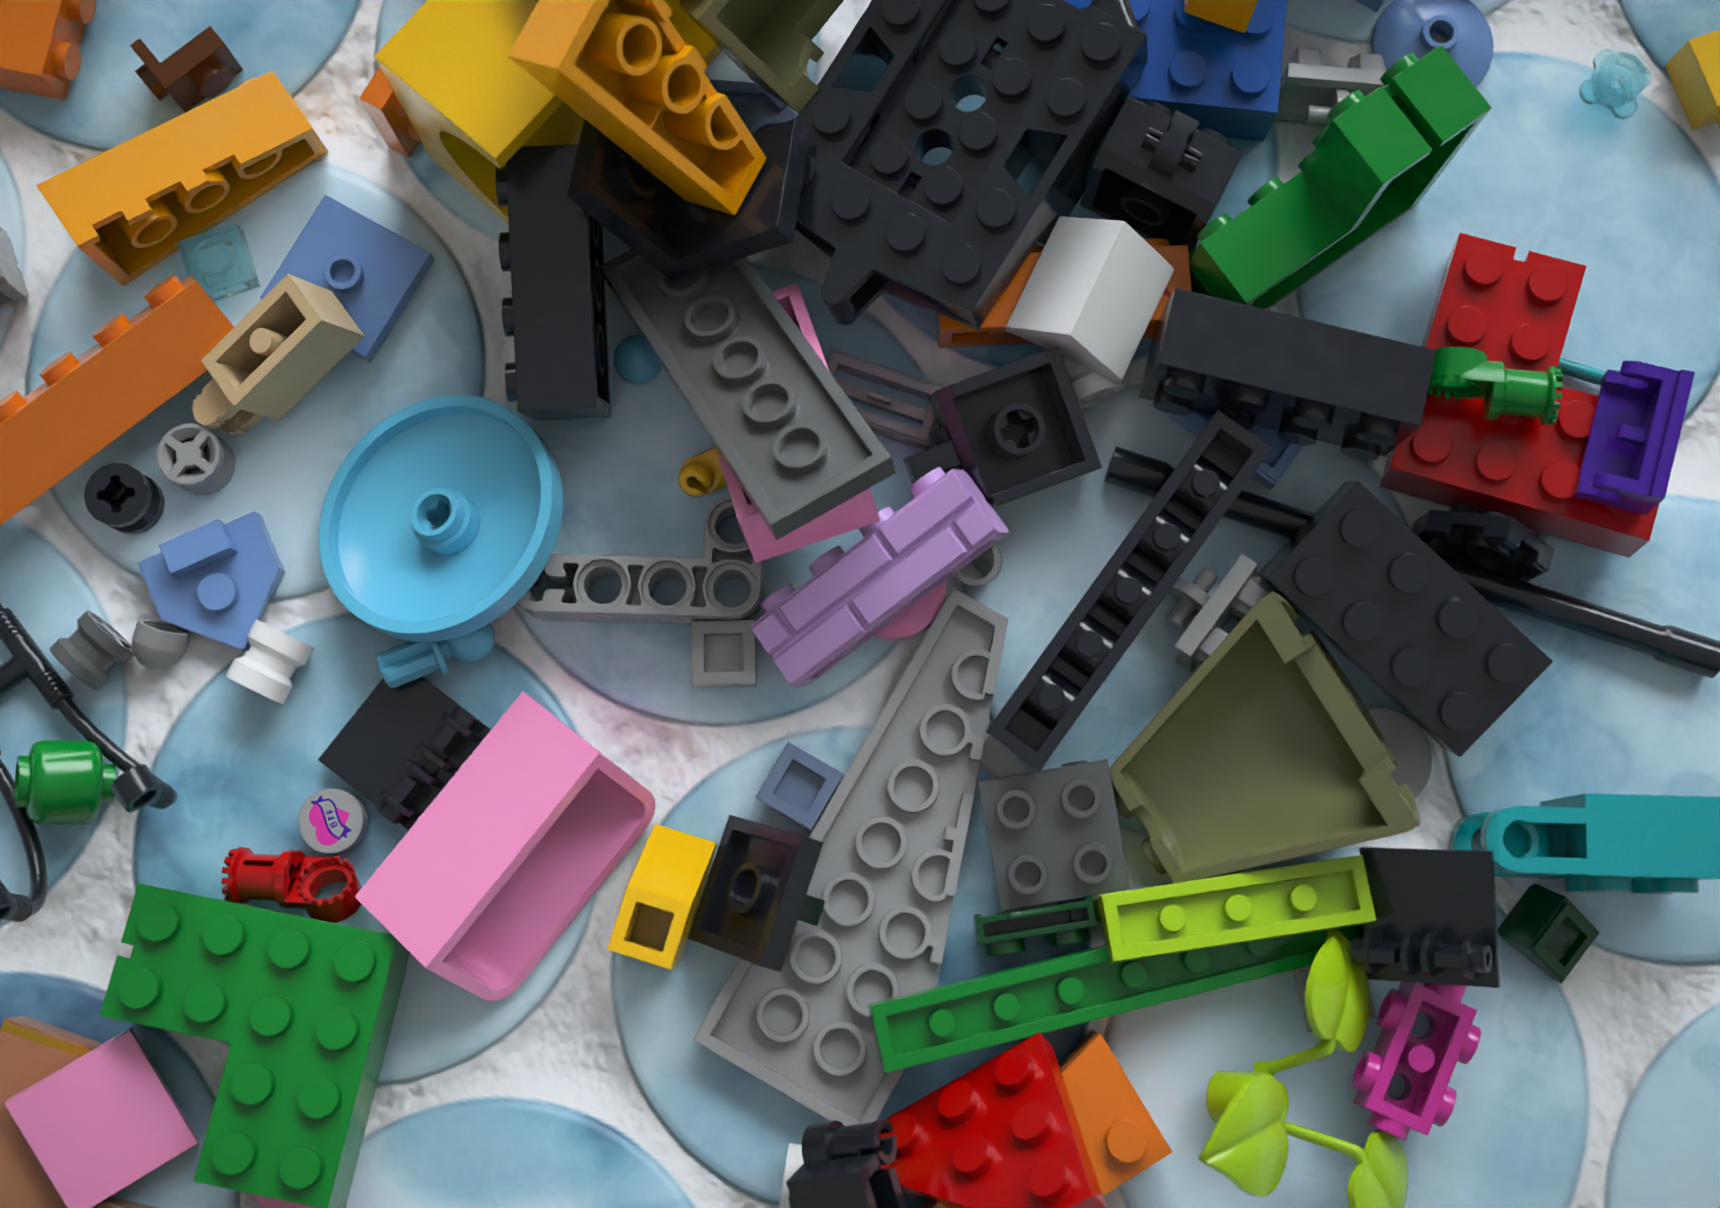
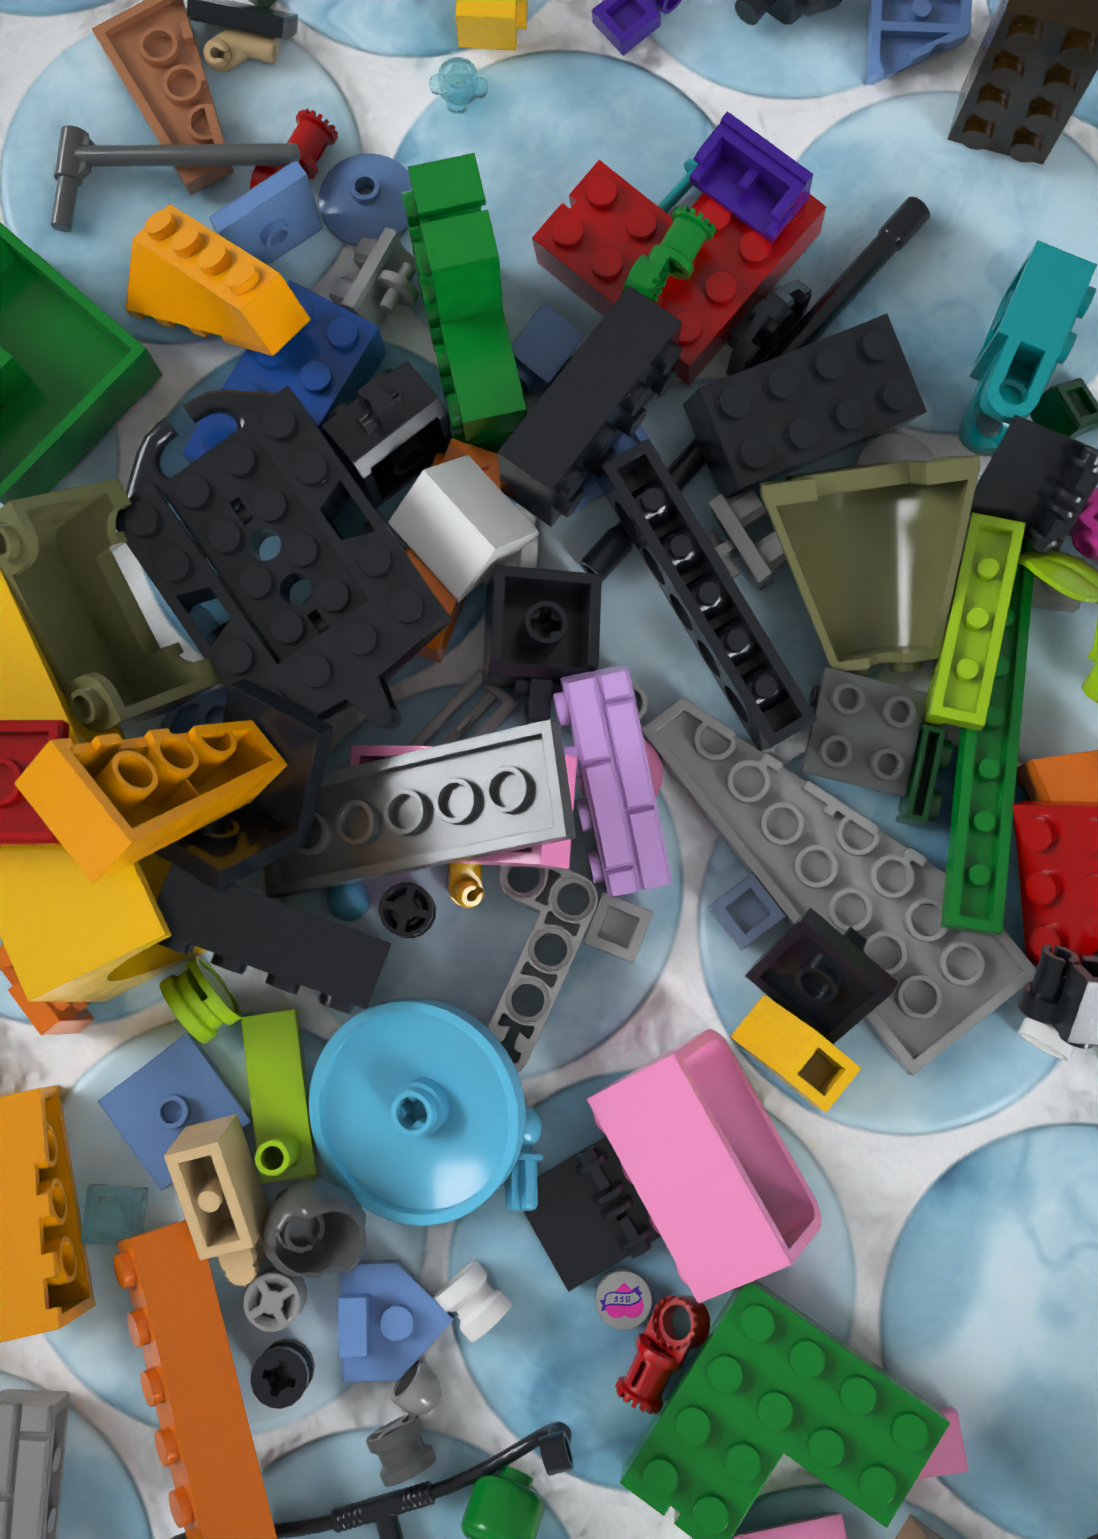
camera: 65 degrees left, 0 degrees up
(278, 464) = (314, 1229): none -> dark grey hair
(401, 374) = (279, 1096): none -> lime piece
(465, 250) = (200, 1000): none -> lime wheel
(647, 410) = (398, 907): none -> black wheel
(1337, 296) = (543, 348): none -> medium blue brick

